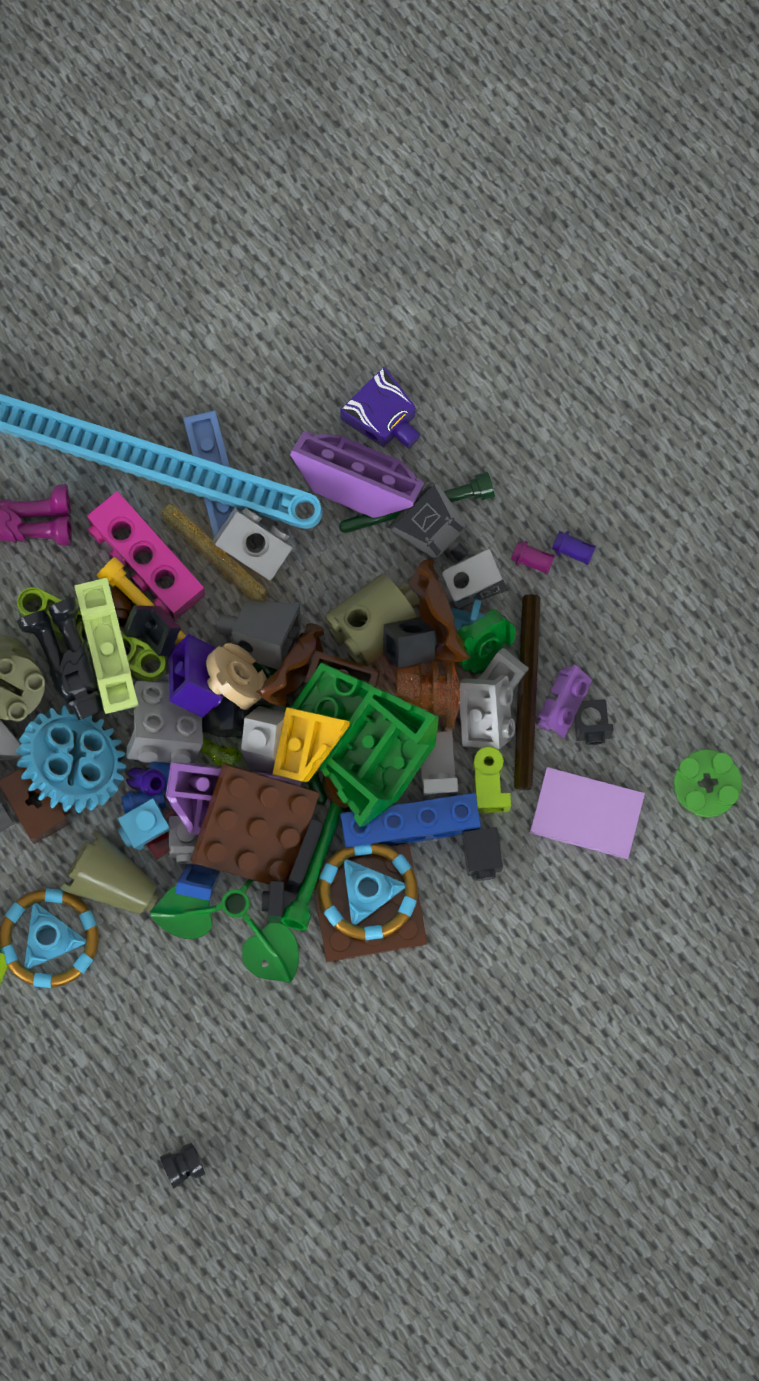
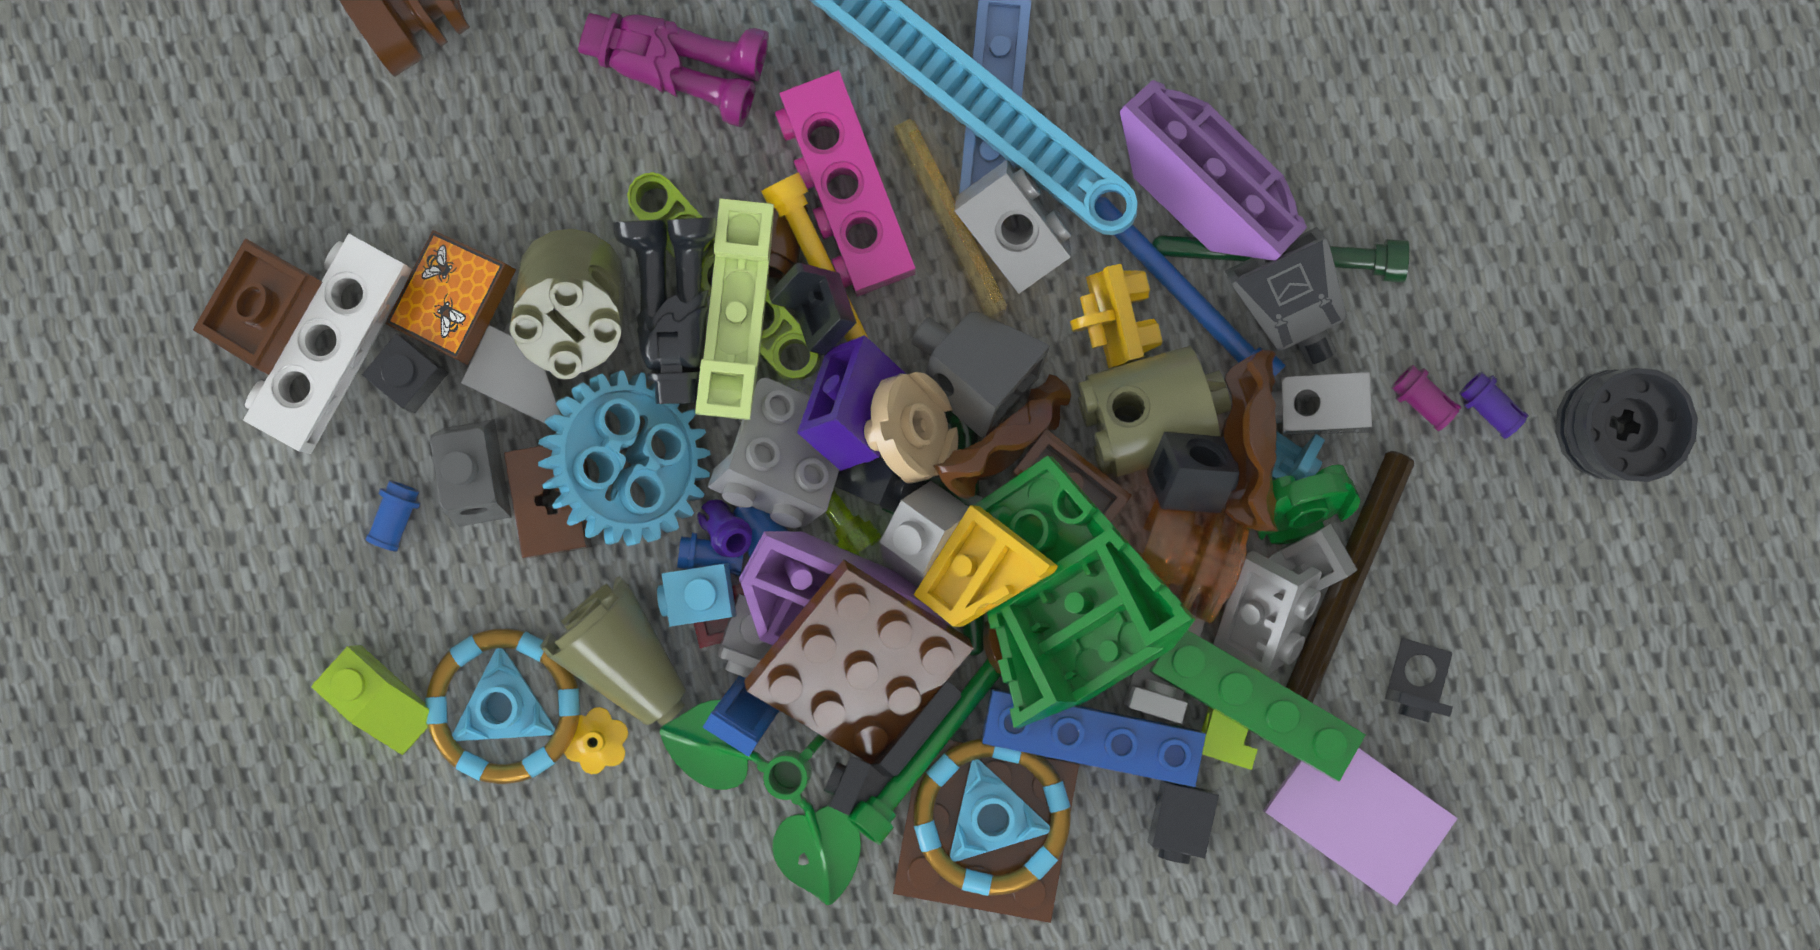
camera: 25 degrees right, 10 degrees up
(122, 942) = (610, 737): none -> yellow plant
(330, 576) = (1111, 316): none -> yellow hips
(366, 546) = (1181, 288): none -> blue piece
(382, 411) = (1284, 89): dark purple torso -> none
(499, 765) = (1260, 704): none -> green plate
(570, 688) = (1409, 619): medium lavender hinge -> none
(662, 514) = (1655, 417): none -> black wheel
(696, 798) = (1532, 854): bright green plate -> none

